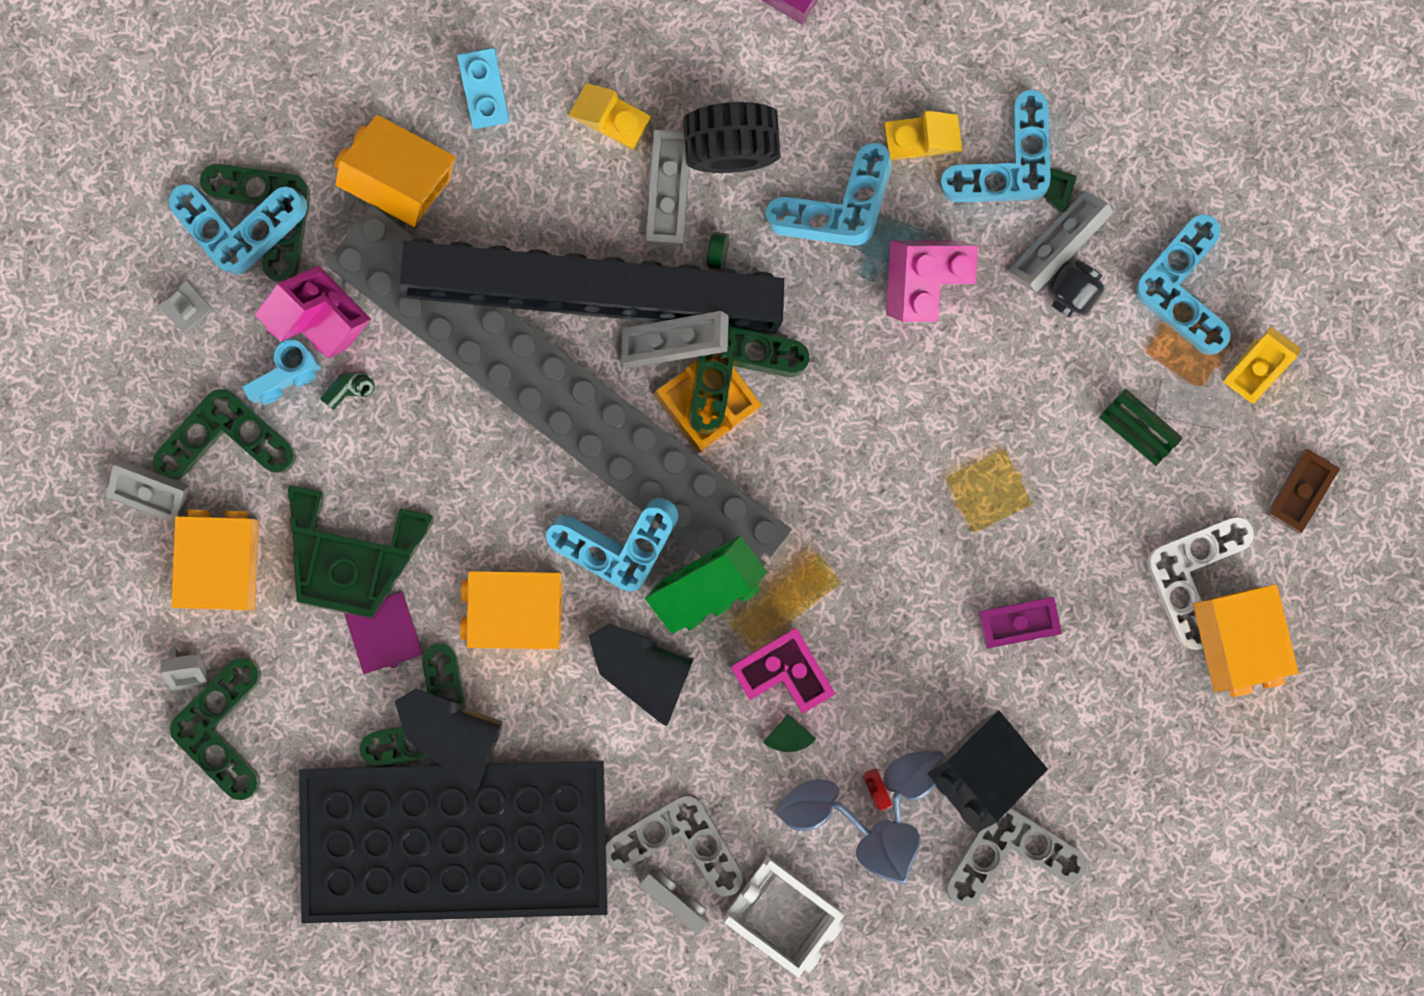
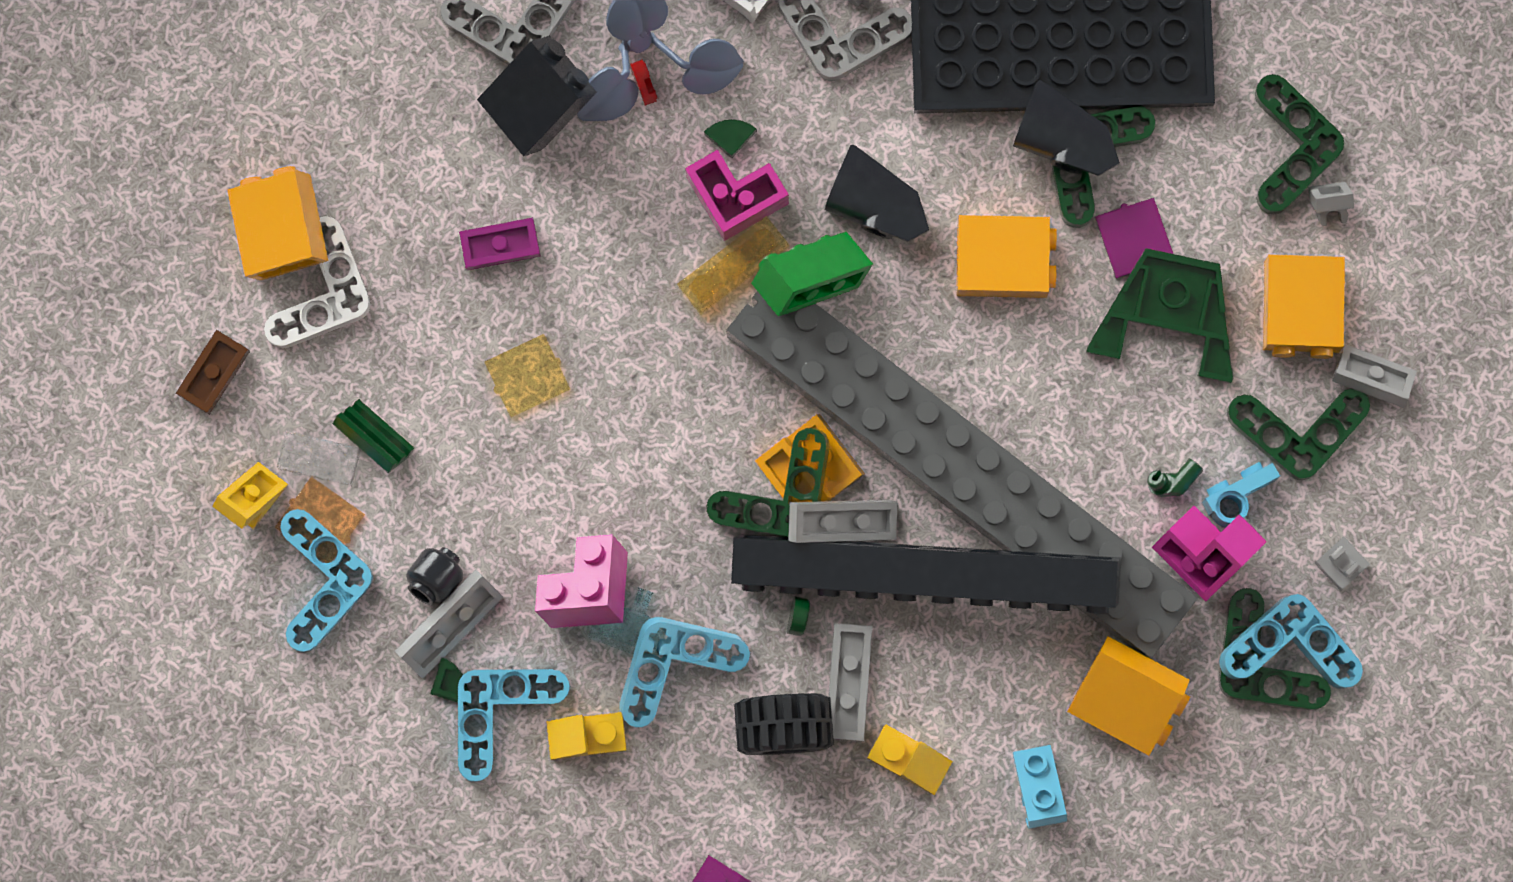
camera: 175 degrees left, 5 degrees down
(618, 557) = (899, 307): medium azure beam -> none

